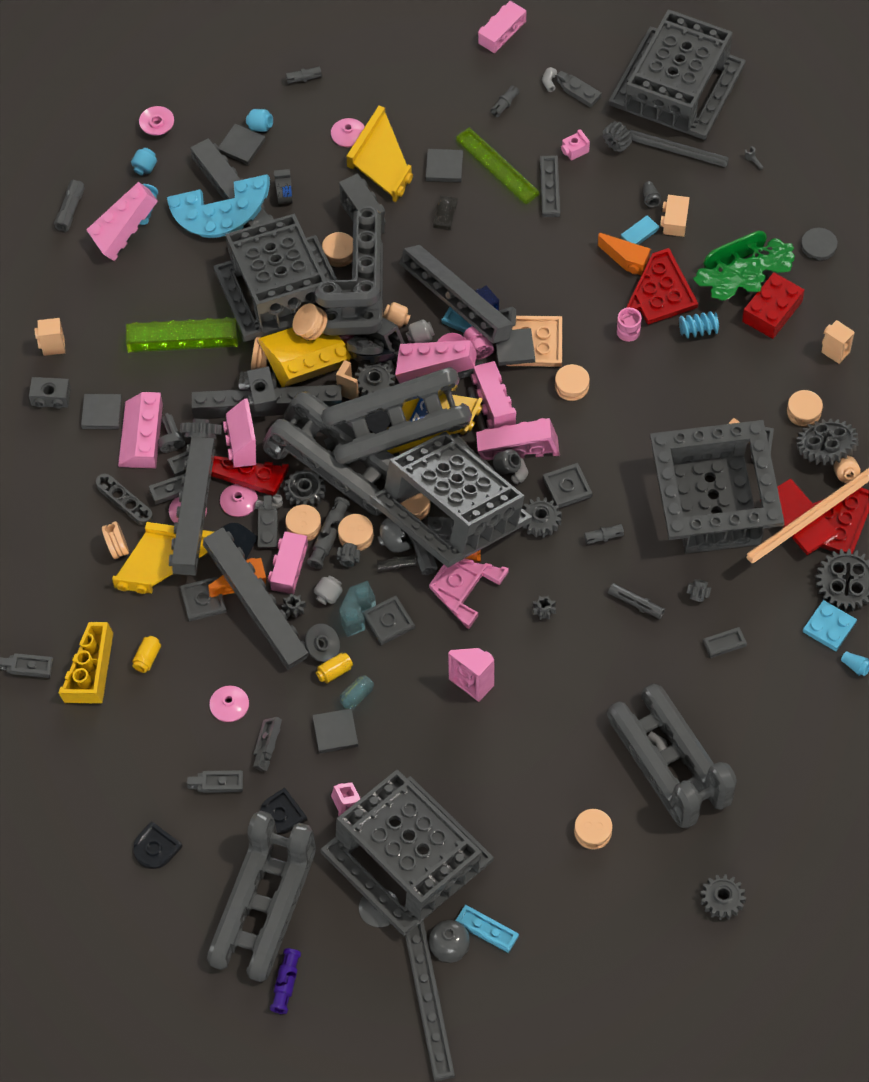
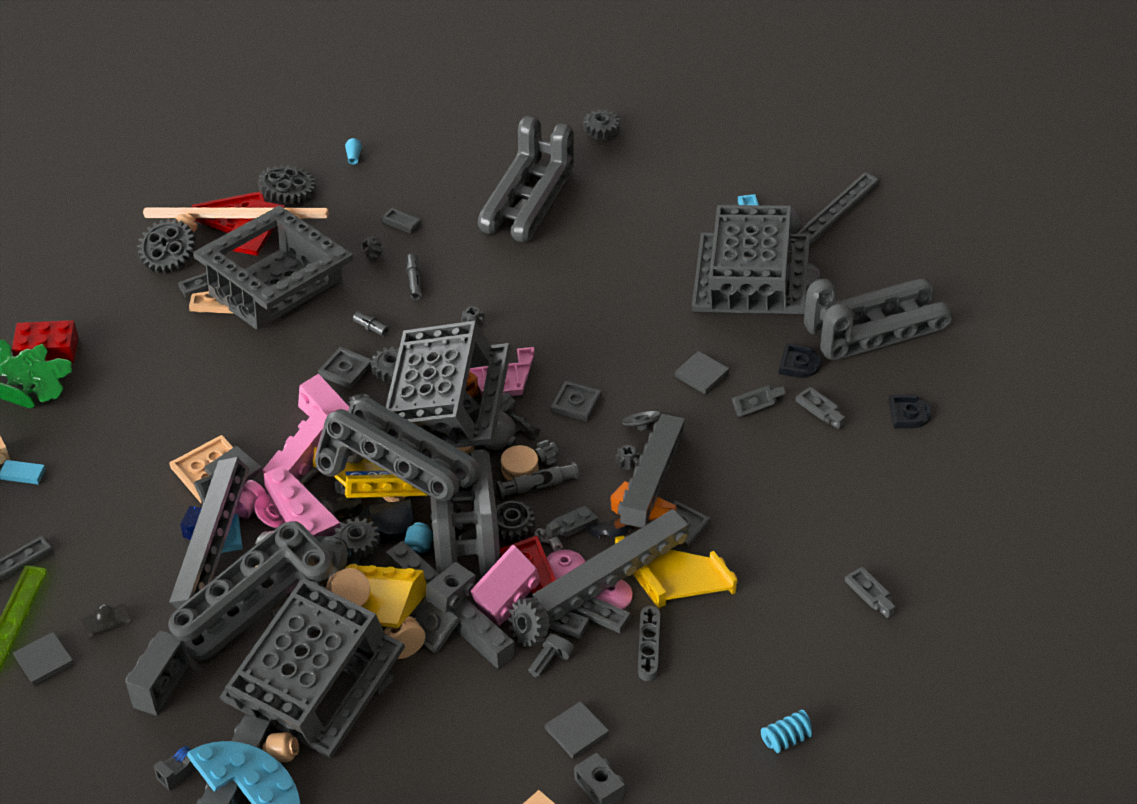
camera: 130 degrees left, 15 degrees down
(90, 665) = (826, 541): yellow wedge -> none
(115, 540) = (698, 606): light nougat head -> none
(141, 431) = (569, 677): bright pink slope -> none
(146, 654) = (771, 519): yellow head -> none
(181, 335) = (434, 723): clear neon green brick -> none
(229, 711) = (750, 448): bright pink dish -> none
(285, 981) = (928, 272): dark purple piece -> none
(288, 562) = (591, 485): bright pink brick -> none
(304, 521) = (545, 501): light nougat head -> none
(328, 590) = (591, 445): light grey head -> none
(334, 668) = (653, 401): yellow head -> none
(338, 249) = (219, 668): light nougat head -> none
(344, 796) = (749, 331): bright pink brick -> none
(345, 137) = (57, 776): bright pink dish -> none
(349, 385) = (375, 551): light nougat panel -> none
(356, 692) = (659, 375): clear light blue head -> none
(357, 600) = (581, 420): clear light blue brick -> none
(380, 157) = (72, 715): yellow piece -> none
(472, 671) = (575, 305): bright pink slope -> none
(572, 382) = (236, 420): light nougat head -> none
(593, 829) = (622, 202): light nougat head -> none
(627, 254) = (60, 460): orange slope -> none
(629, 324) = (142, 414): bright pink wheel -> none
(662, 289) = (81, 419): red wing -> none
(699, 324) = (104, 374): medium azure piece -> none
(804, 408) = (140, 278): light nougat head -> none
(829, 625) = (333, 179): medium azure plate -> none
(837, 341) = (58, 282): light nougat brick -> none

